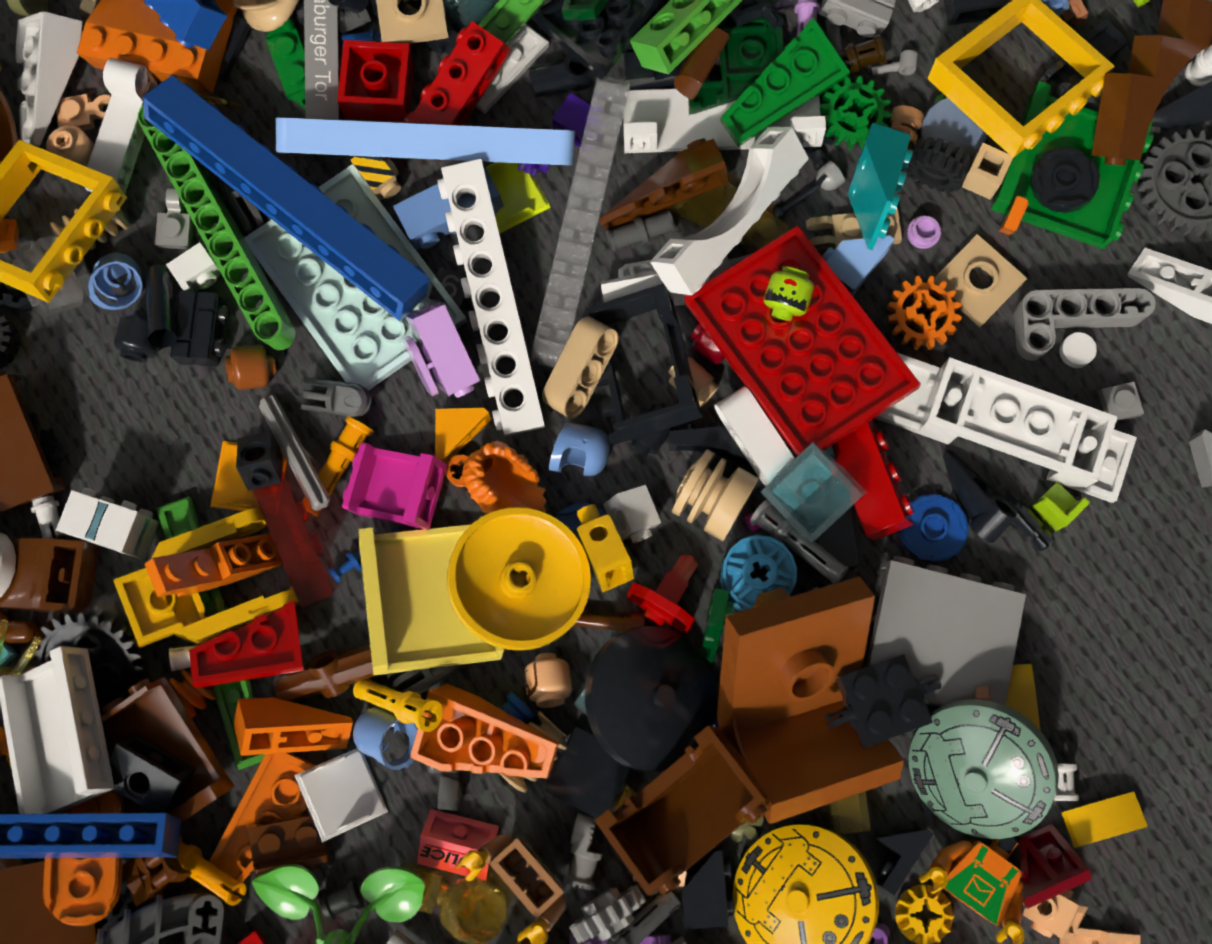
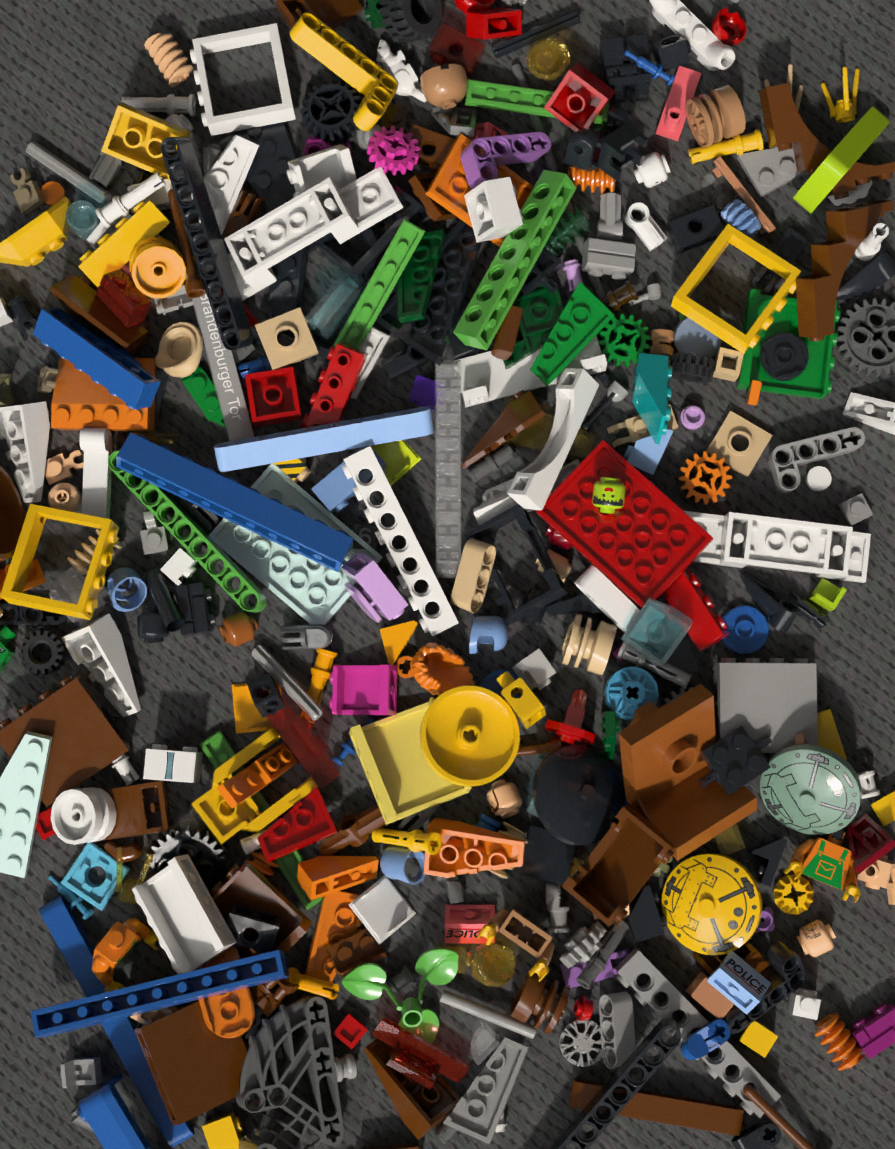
camera: 15 degrees left, 5 degrees up
(61, 349) = (103, 653): none -> white wedge

